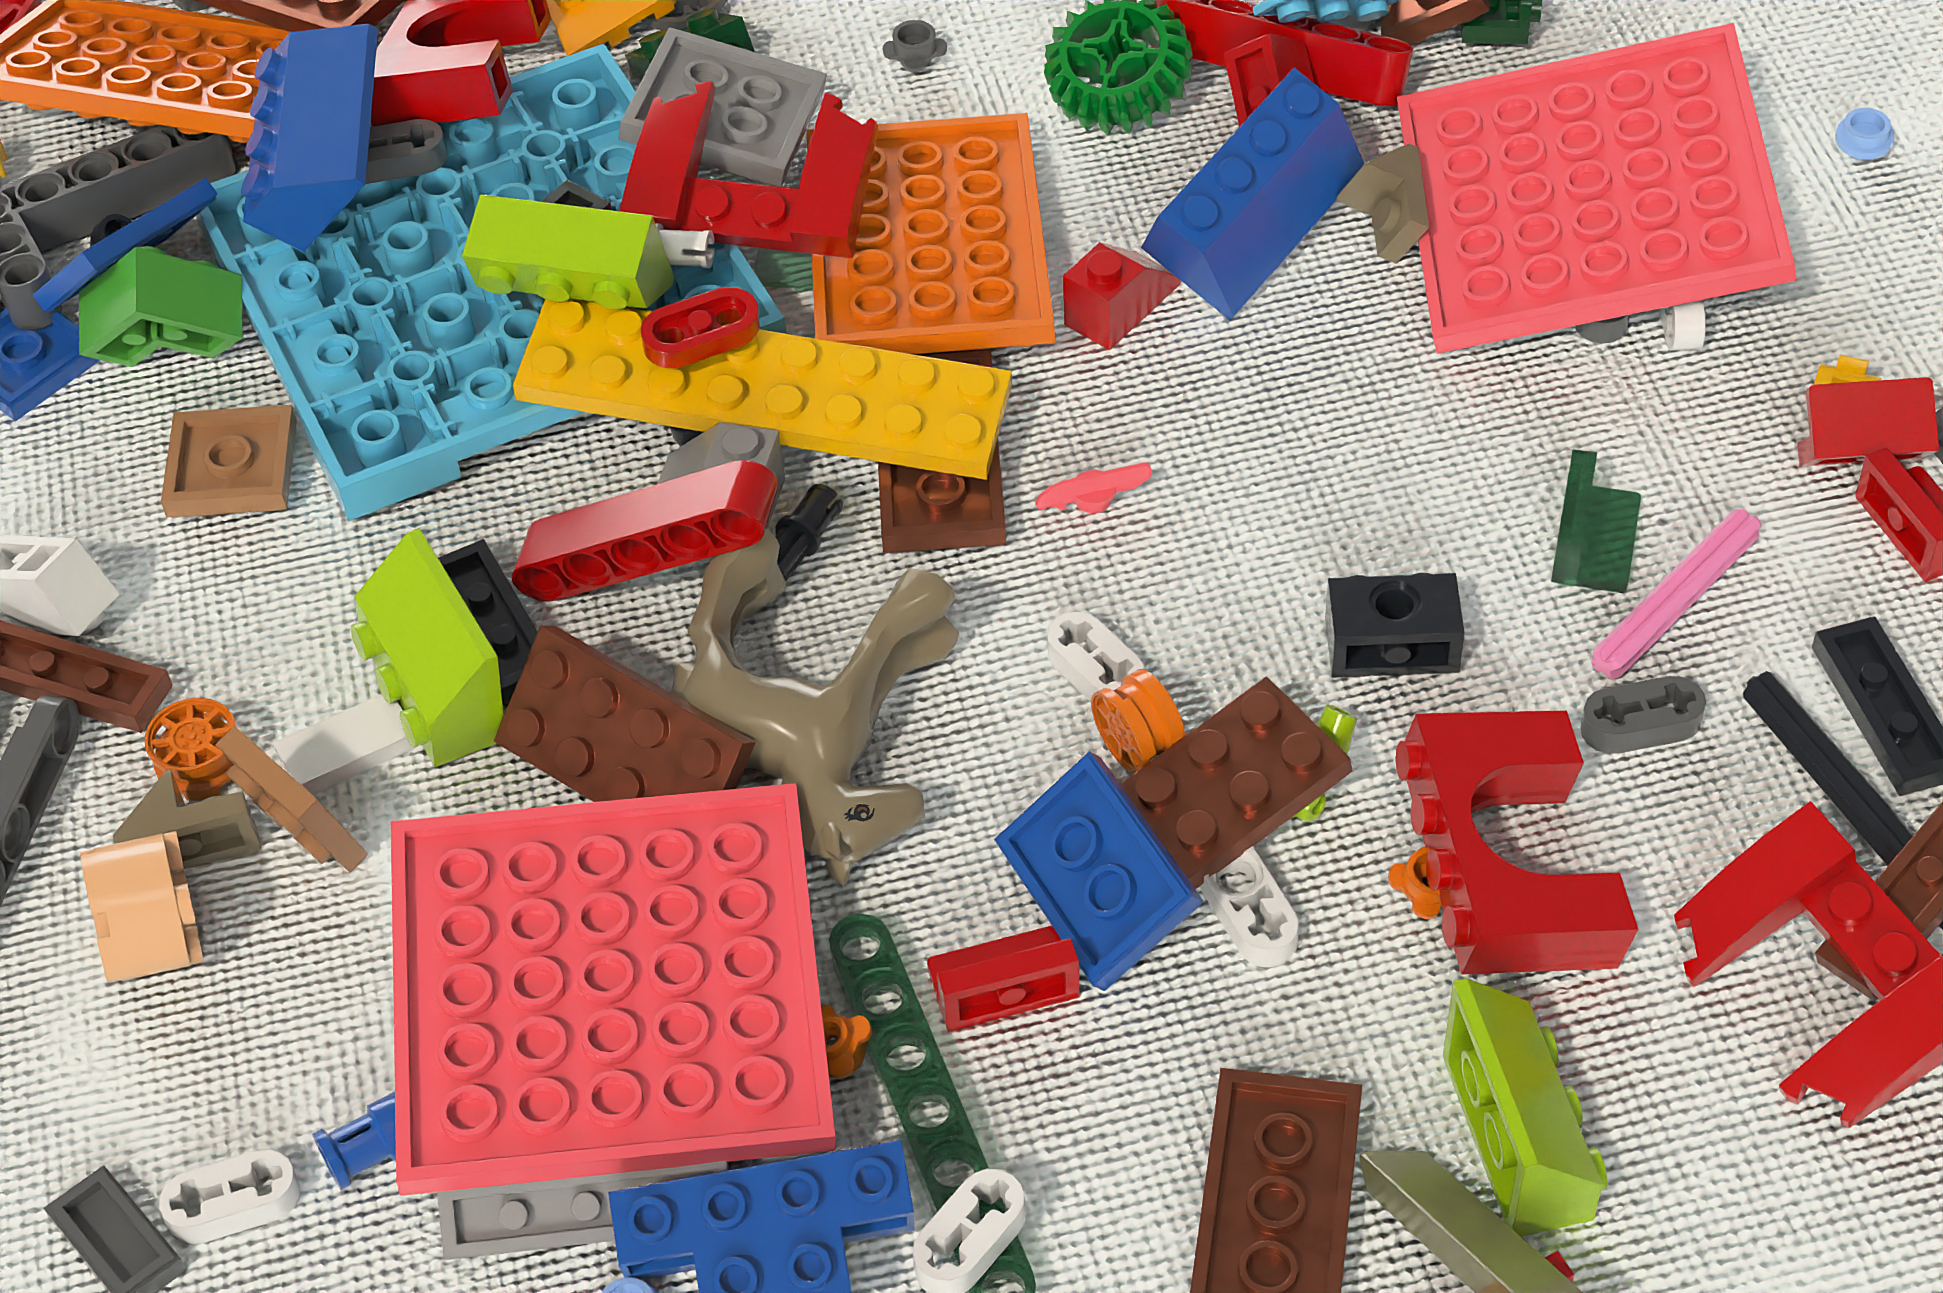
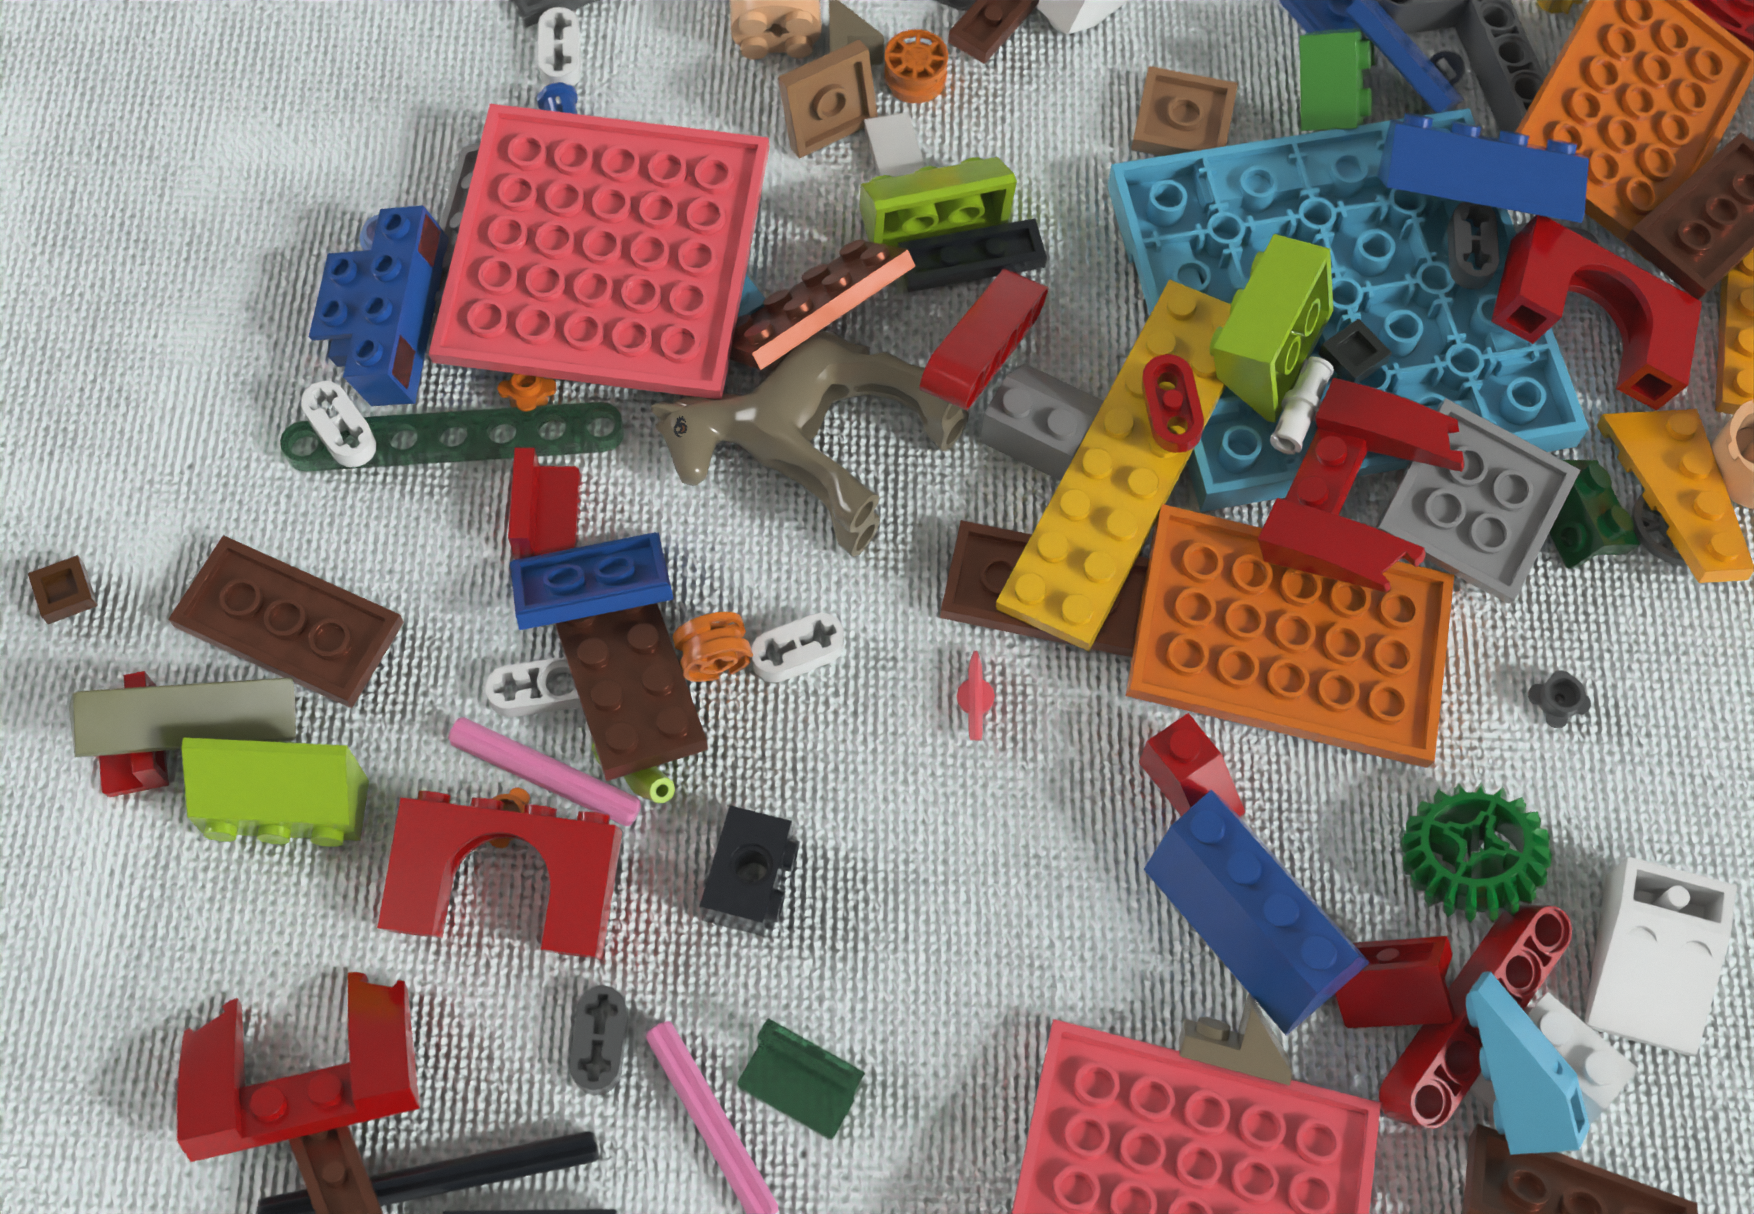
camera: 100 degrees right, 15 degrees up
(801, 531) = (989, 468): black axle -> none
(1355, 866) = (544, 771): none -> bright pink axle

